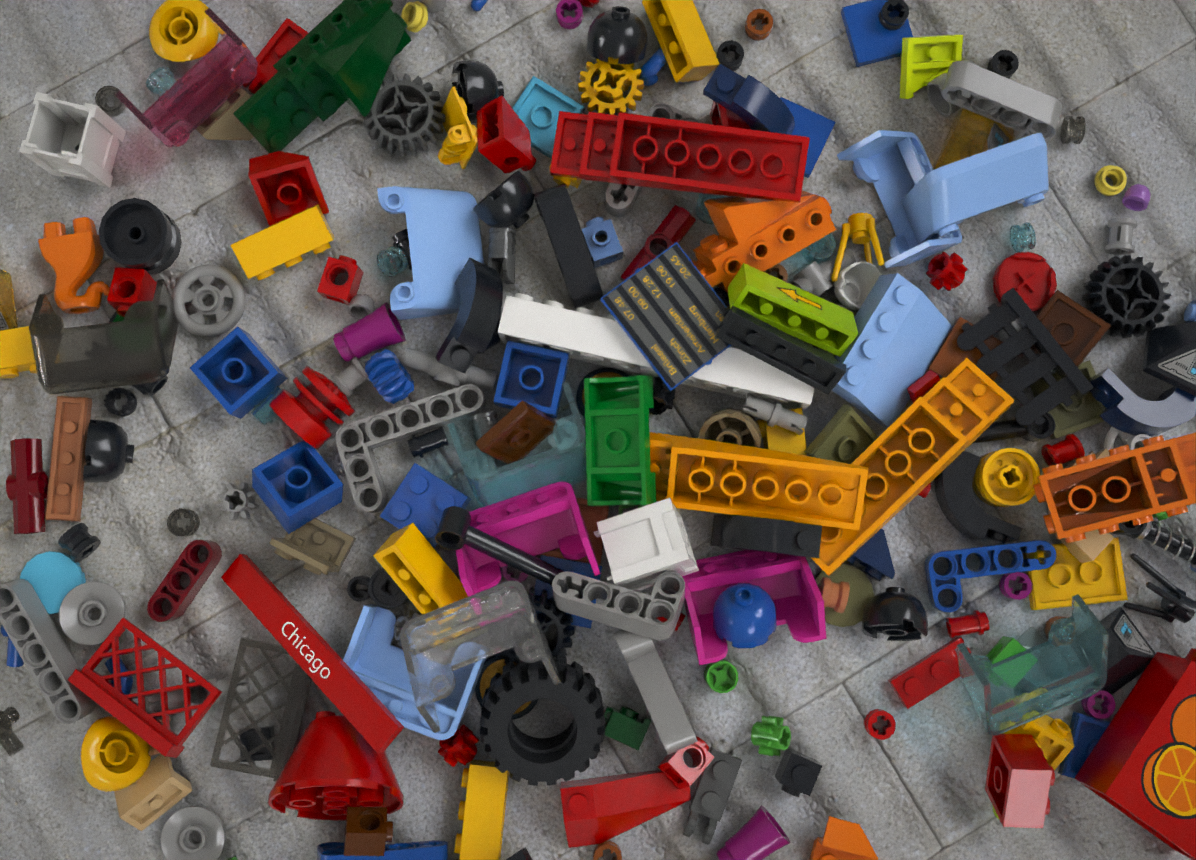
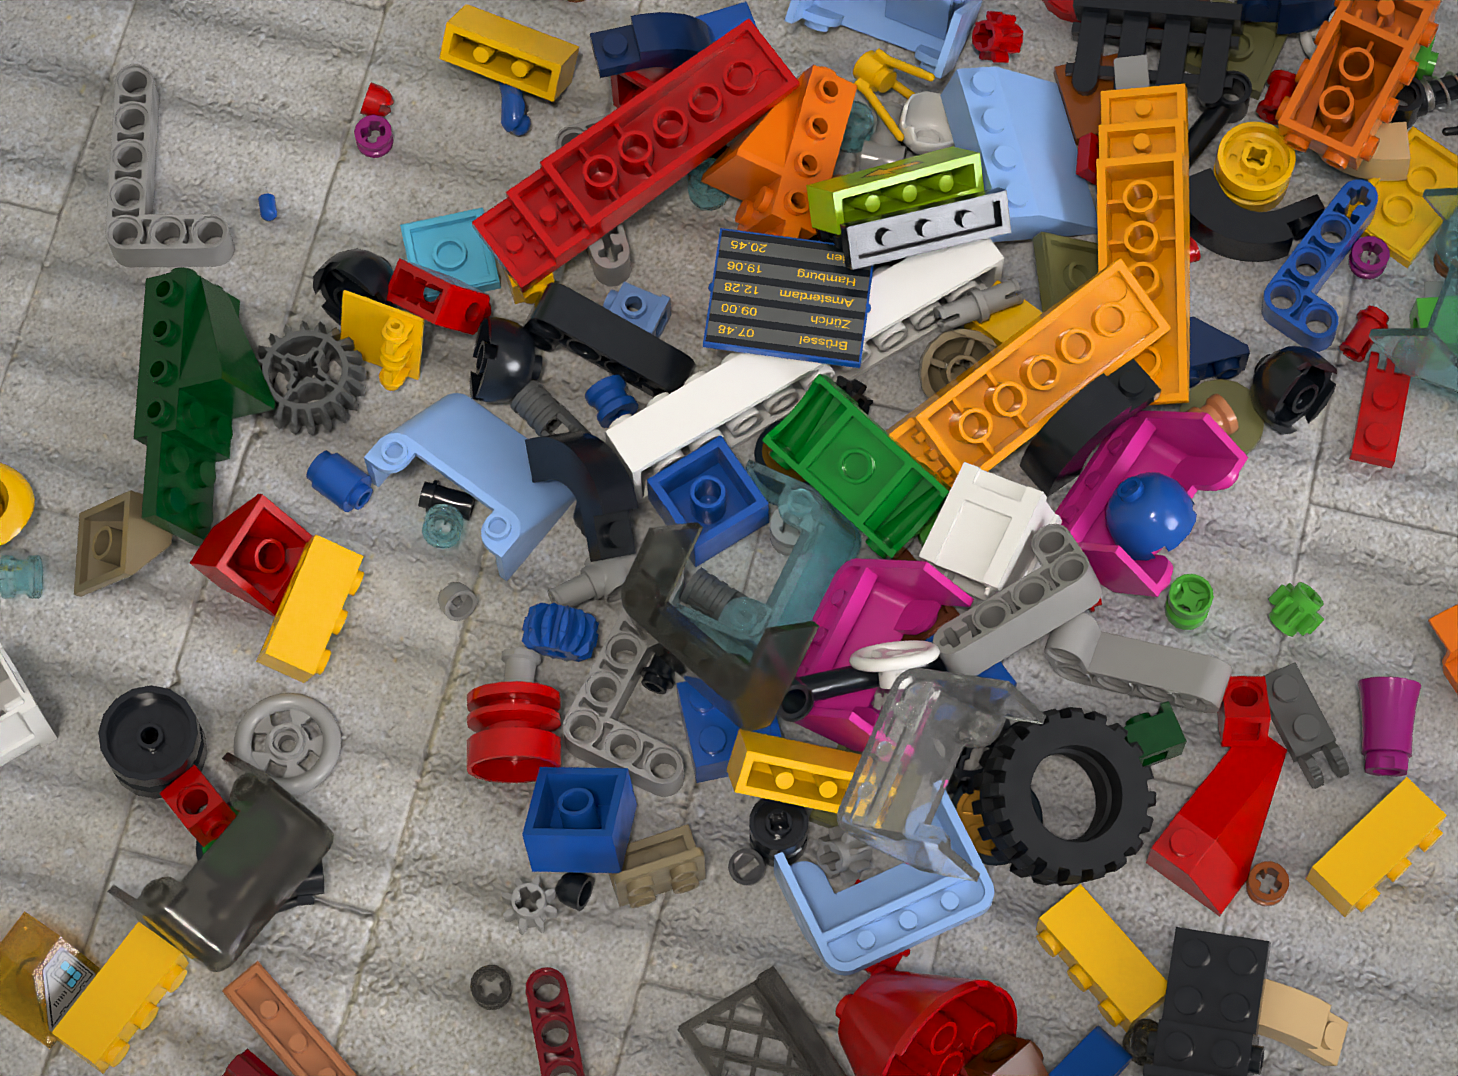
camera: 45 degrees left, 15 degrees down
(74, 261) = (100, 838): orange hips -> none
(106, 451) = (337, 988): black cylinder -> none
(115, 394) = (283, 936): black bush -> none
(200, 89) = (70, 530): clear pink windscreen -> none
(238, 373) = (399, 775): blue brick -> none
(263, 411) = (463, 786): clear light blue pin -> none
(265, 516) = (574, 890): none -> black hinge
(281, 42) = (112, 443): red hinge -> none
(313, 654) = (766, 954): red tile -> none
(345, 292) = (412, 610): red brick -> none
(364, 185) = (340, 481): none -> blue brick
(369, 334) = (495, 614): magenta plant -> none
(415, 16) = (220, 264): light yellow plate -> none
(426, 459) = (738, 688): none -> clear smoke windscreen
(459, 747) = (1009, 919): red gear -> none
(516, 433) = (751, 552): reddish brown tile -> none
(526, 568) = (893, 658): none -> white piece
(541, 276) = (610, 399): none -> blue wheel
(617, 35) = (451, 106): black cylinder -> none
(617, 75) = (480, 150): yellow gear -> none
(670, 231) = (695, 249): dark red piece -> none
(730, 46) = (585, 26): black bush -> none
(797, 773) = (1357, 617): black brick -> none
(888, 730) = (1371, 502): red bush -> none
(994, 363) = (1131, 72): none -> light grey sticker

